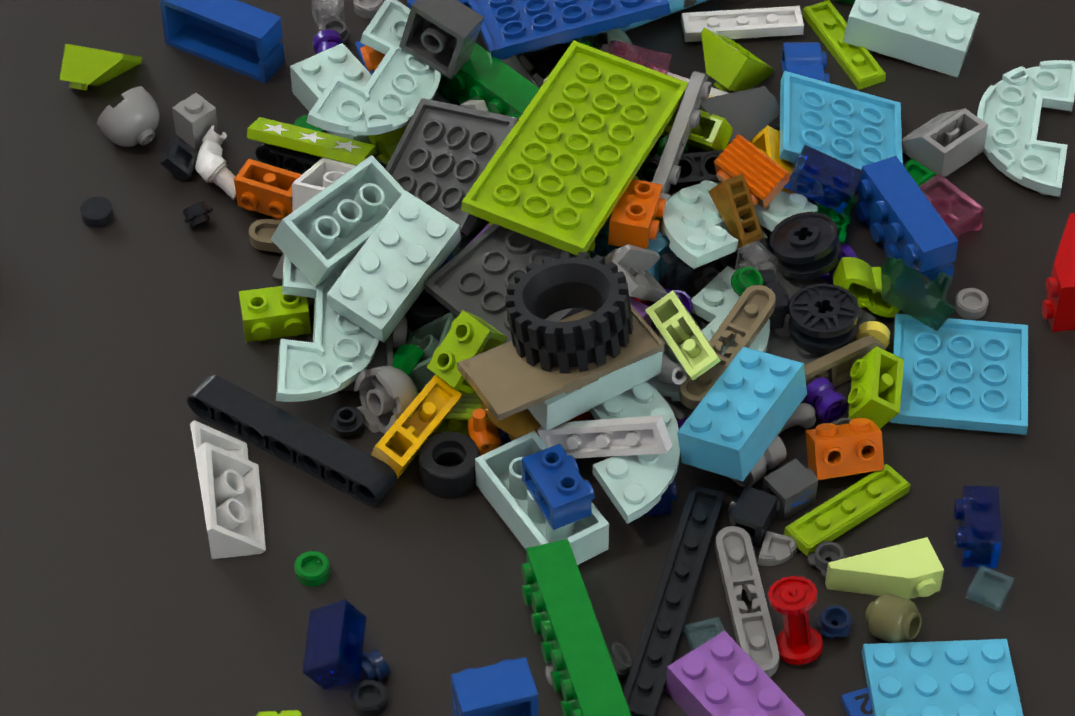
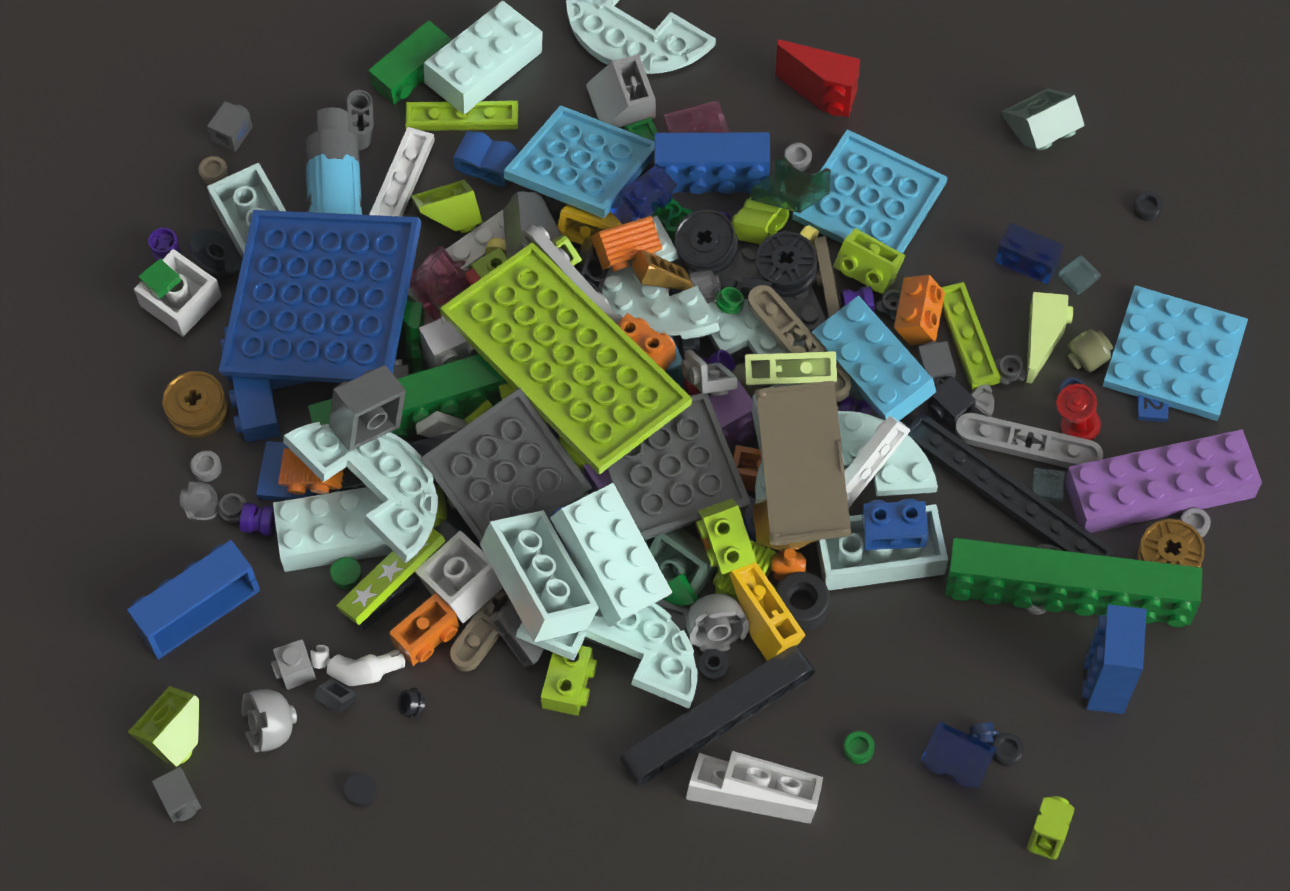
camera: 65 degrees left, 15 degrees up
(35, 92) = (177, 795): none -> dark grey brick
(563, 286) = (771, 400): black tyre -> none

